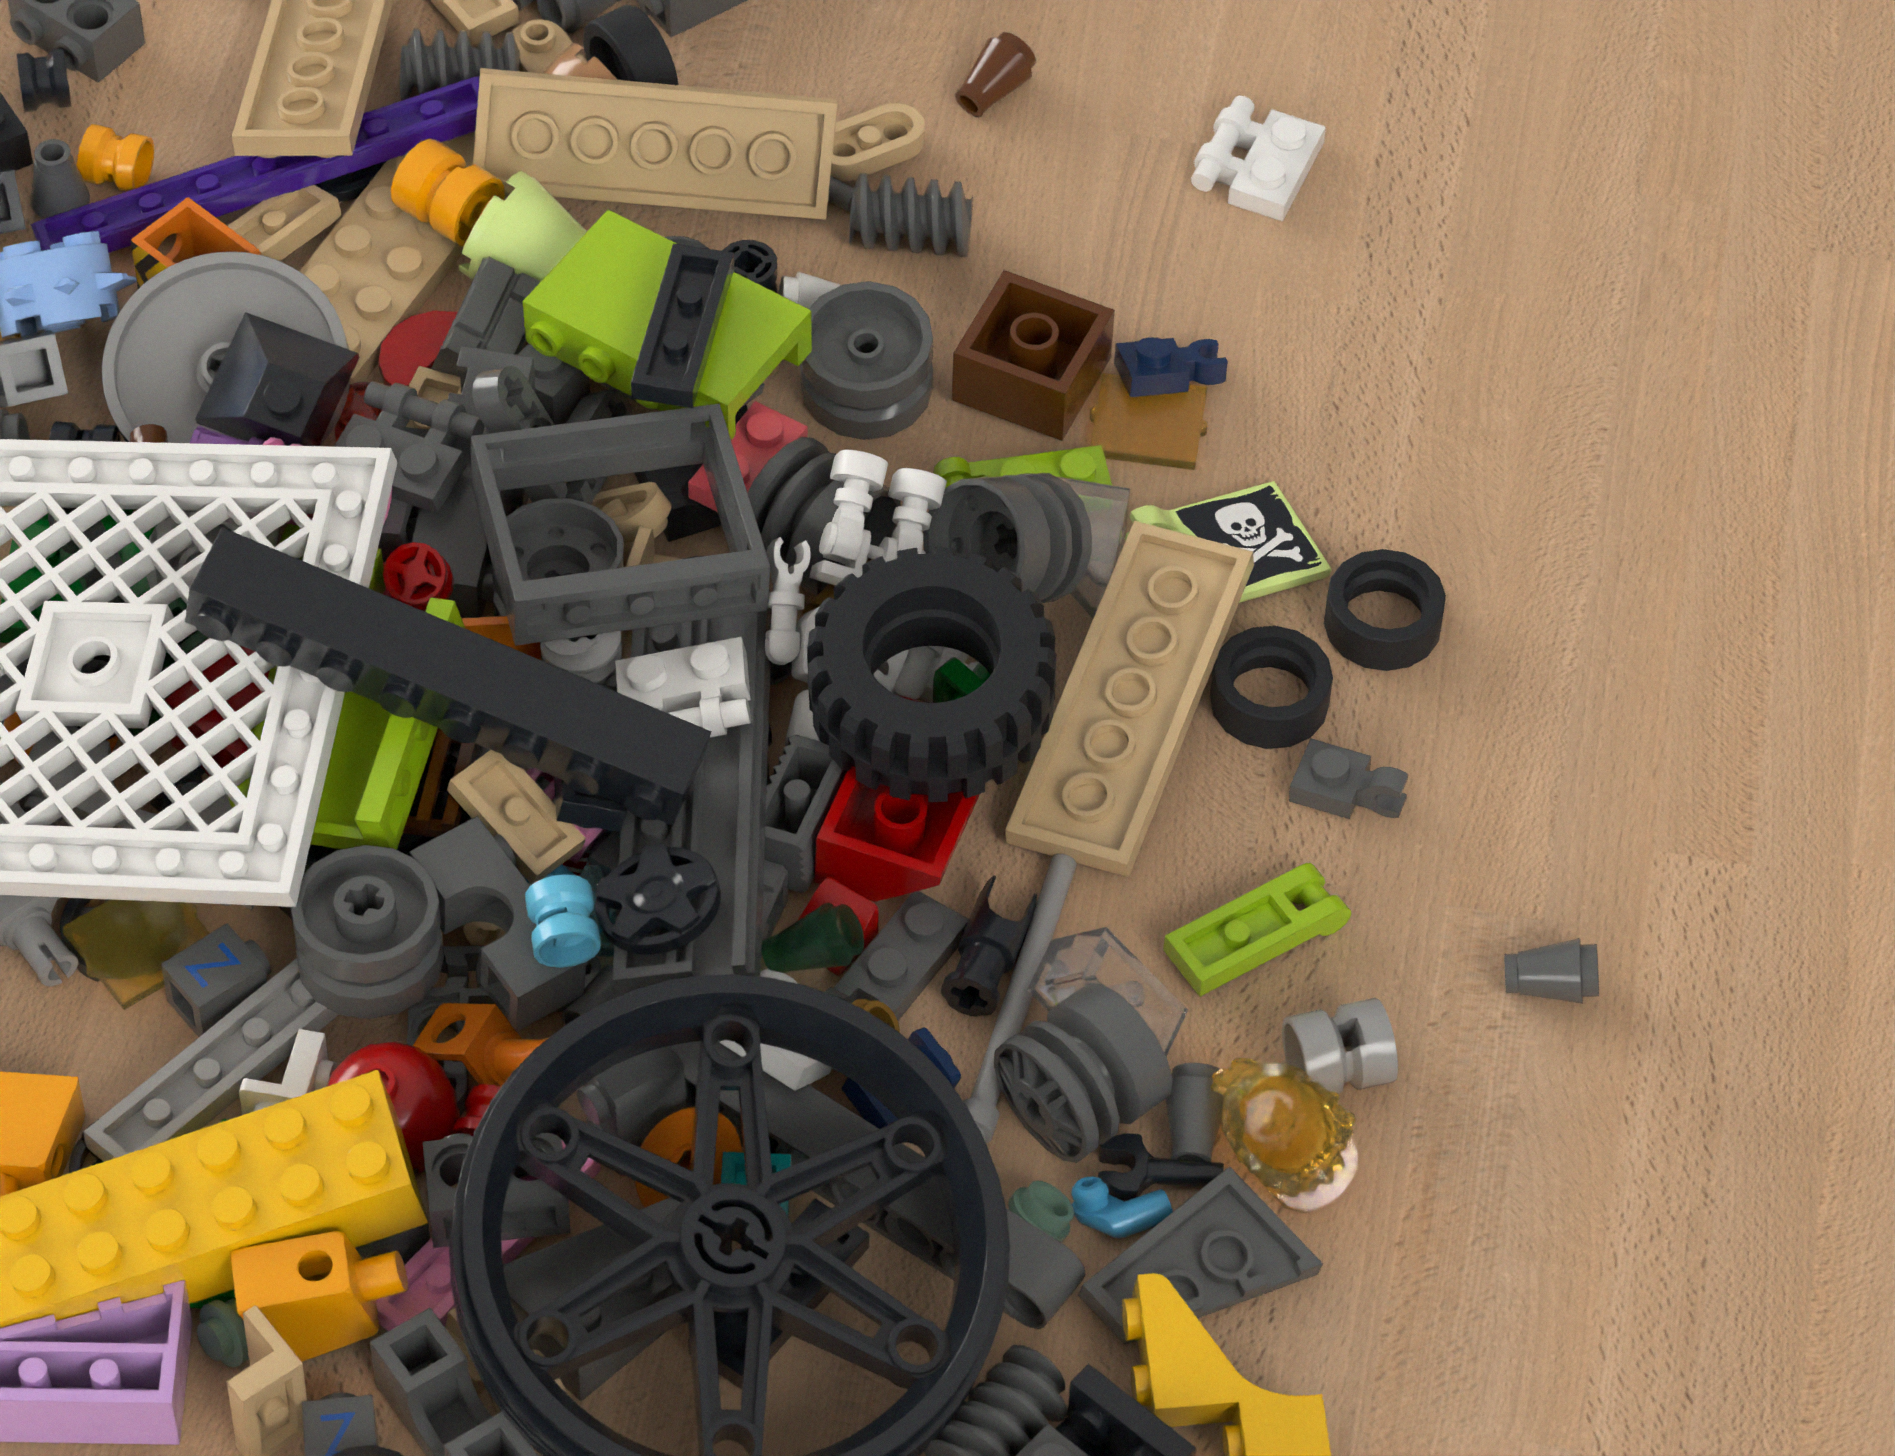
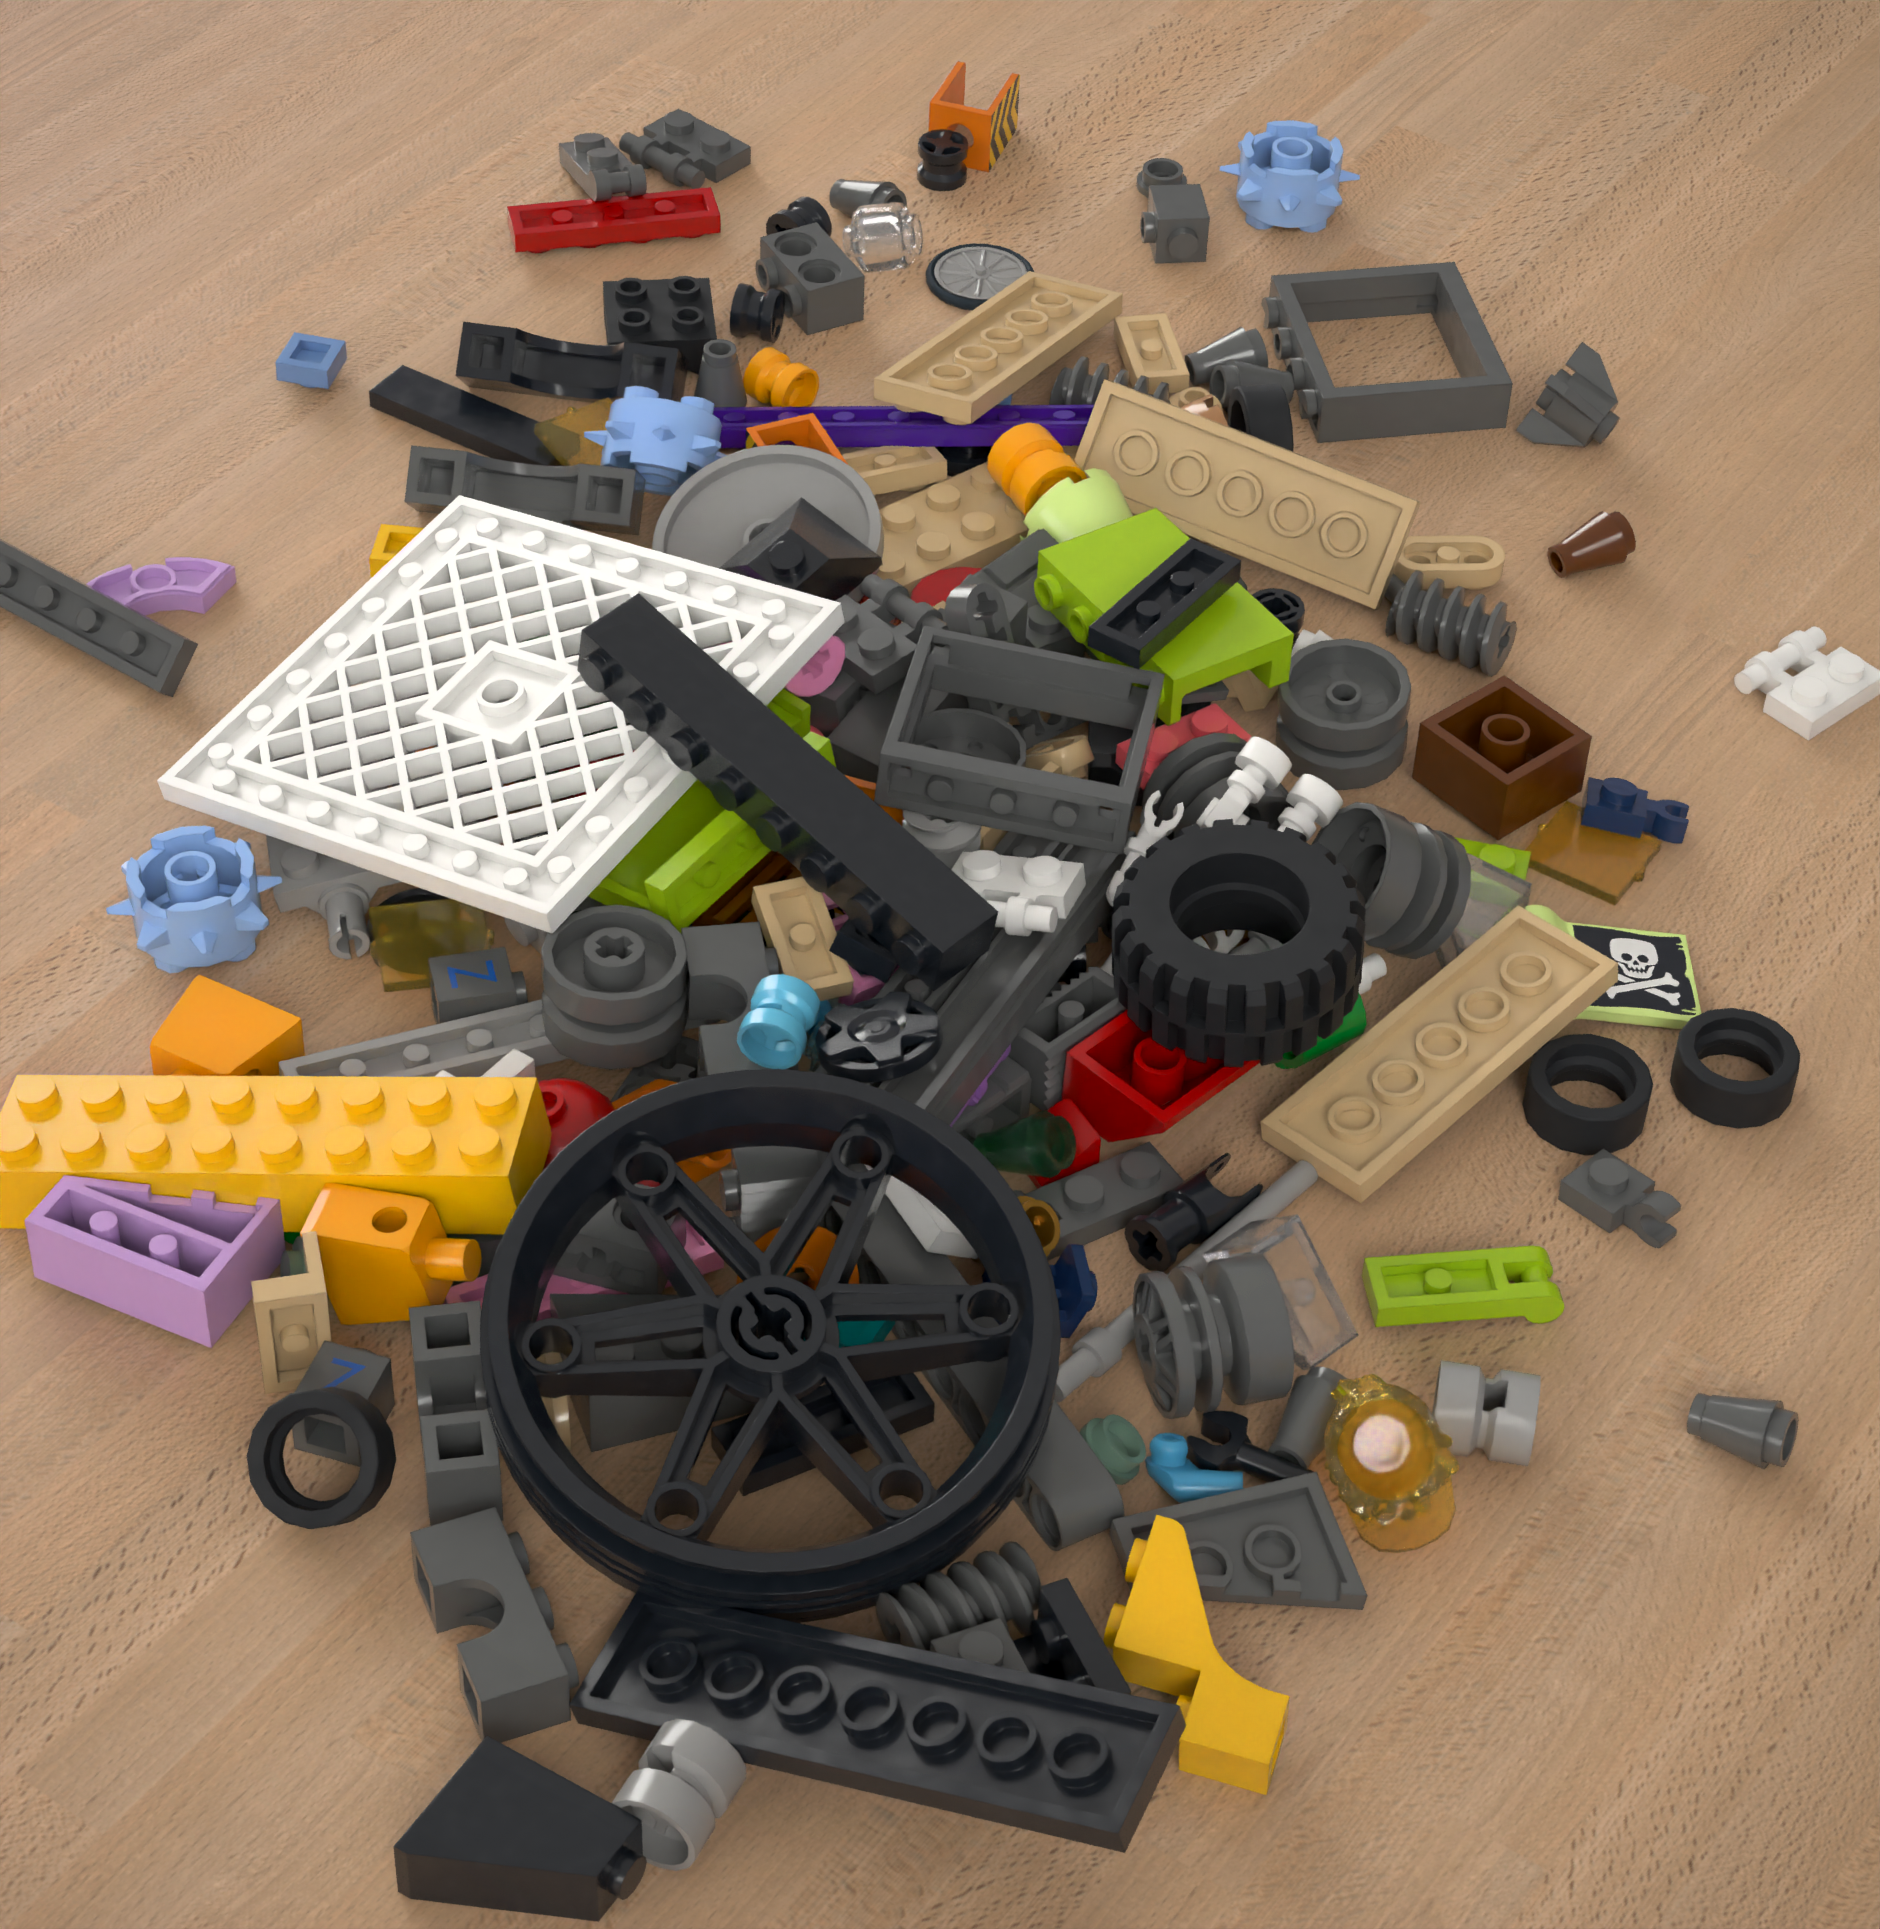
camera: 25 degrees right, 10 degrees down
(407, 570) = (842, 729): red wheel -> none

